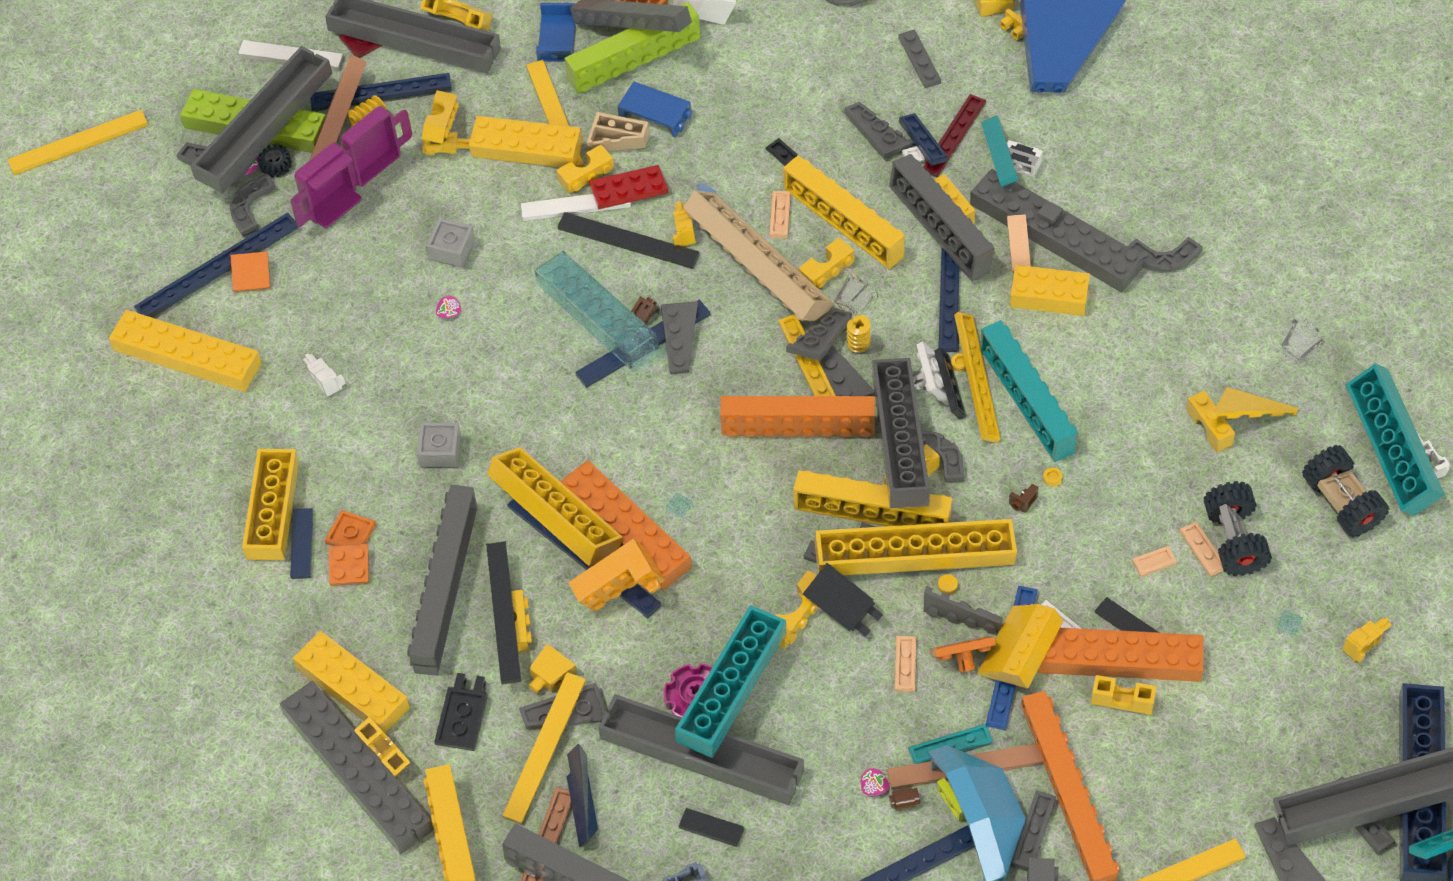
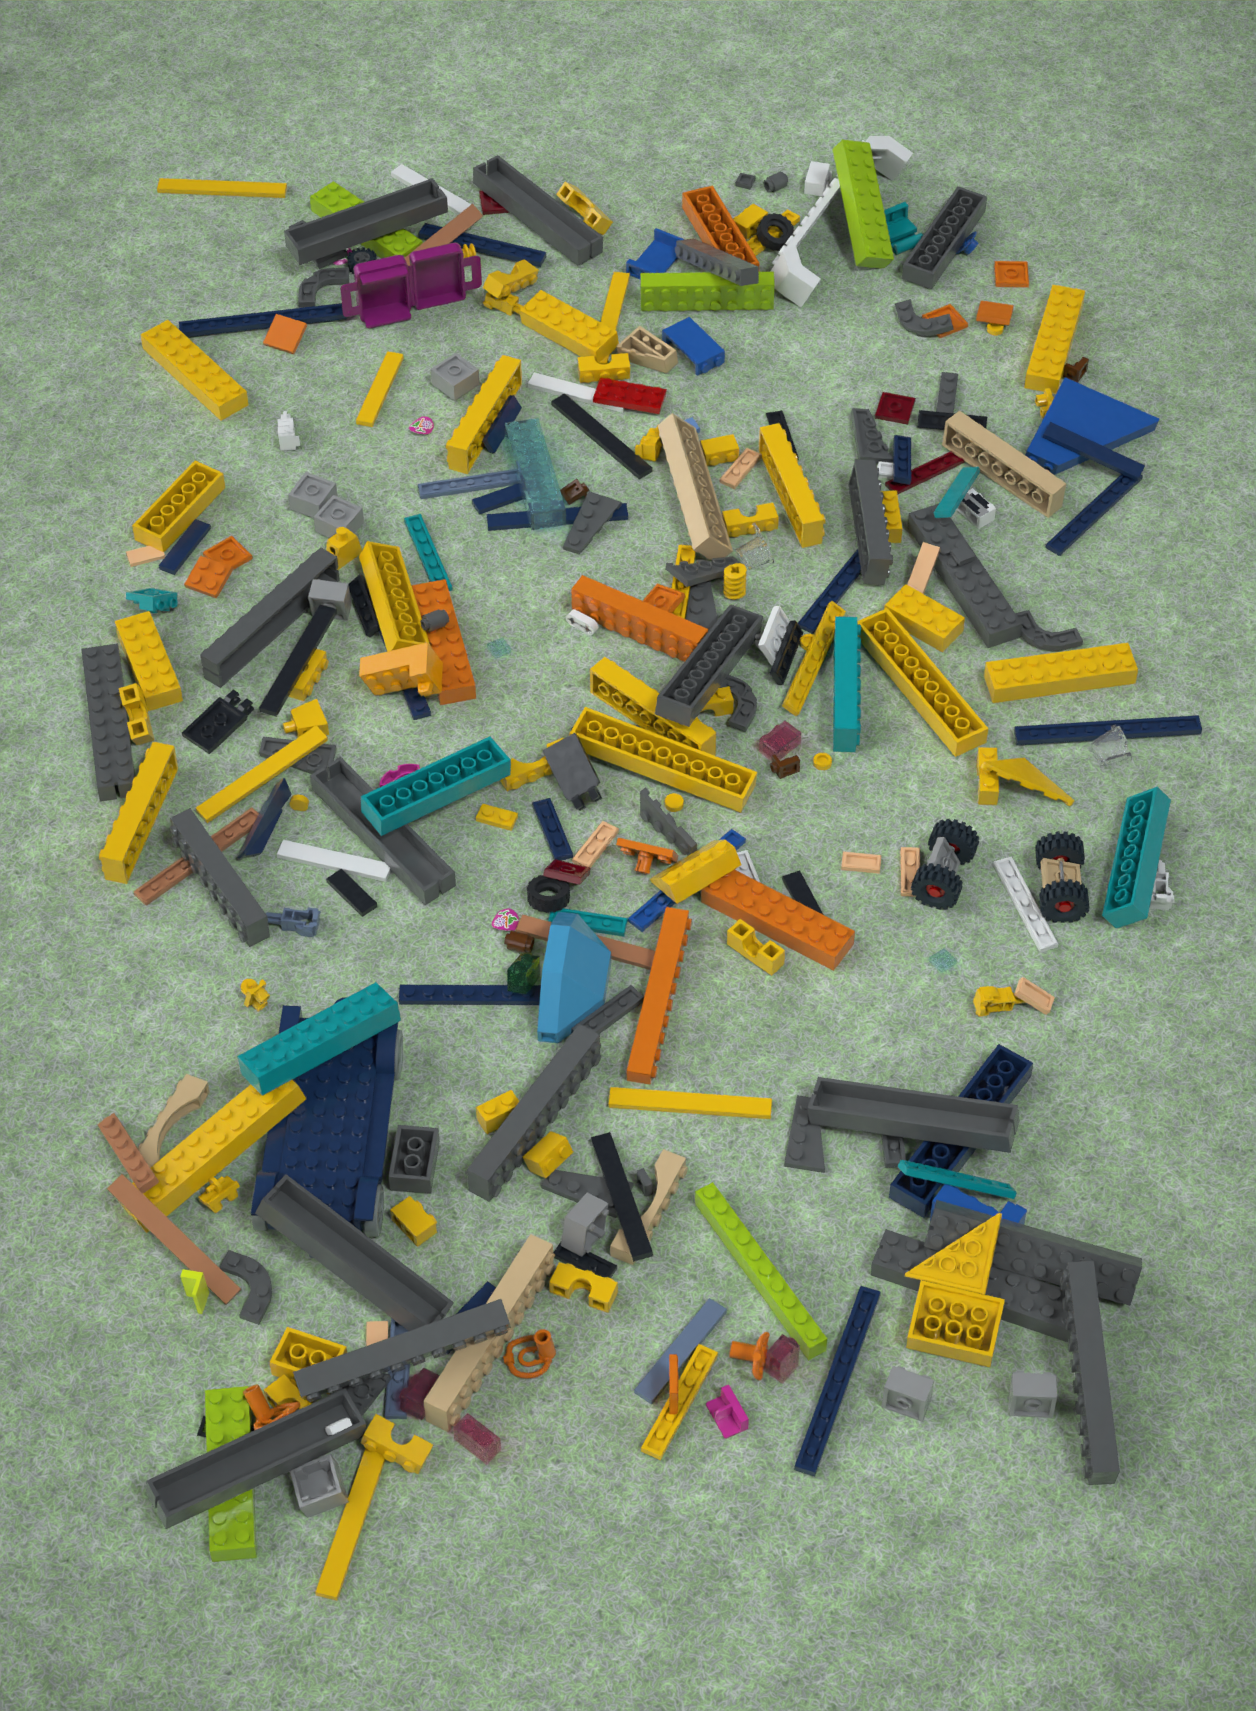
camera: 25 degrees right, 5 degrees down
(266, 572) = (144, 555): none -> light nougat tile
(313, 615) = (153, 599): none -> teal plate
(381, 287) = (379, 389): none -> yellow tile
(396, 431) = (311, 494): none -> light grey container
(464, 467) = (344, 546): none -> yellow torso
(489, 530) = (332, 595): none -> light grey container
(506, 270) = (467, 438): none -> yellow brick
(523, 522) = (364, 605): none -> black tile
(527, 272) = (497, 430): none -> dark blue tile
(533, 348) = (467, 484): none -> sand blue tile
(542, 436) = (426, 549): none -> teal tile
(573, 351) = (497, 499): none -> dark blue tile
(600, 759) = (299, 802): none -> yellow tile
(612, 508) = (434, 620): none -> dark grey brick
(671, 802) = (333, 860): none -> white tile
(741, 441) = (582, 622): none -> white beam
(752, 204) = (720, 450): none -> yellow brick
(795, 680) = (496, 817): none -> yellow plate
(802, 382) = (664, 598): none -> orange tile
(855, 668) = (552, 829): none -> dark blue tile
(879, 89) = (895, 408): none -> dark red tile
(902, 705) = (567, 871): none -> dark red tile
(902, 748) = (548, 903): none -> black tyre
(935, 830) = (523, 973): none -> clear green brick
(942, 80) = (937, 420): none -> black tile
(1004, 476) = (780, 741): none -> clear pink brick
(1021, 103) = (1004, 464): none -> tan brick
(1091, 54) = (1093, 451): none -> dark blue tile
(1094, 356) = (922, 683): none -> yellow brick
(1124, 113) = (1091, 514): none -> dark blue tile
(1204, 288) = (1060, 672): none -> yellow brick
(1280, 325) = (1092, 730): none -> dark blue plate
(1323, 531) = (1025, 904): none -> white tile
(1394, 618) = (1034, 995): none -> light nougat tile

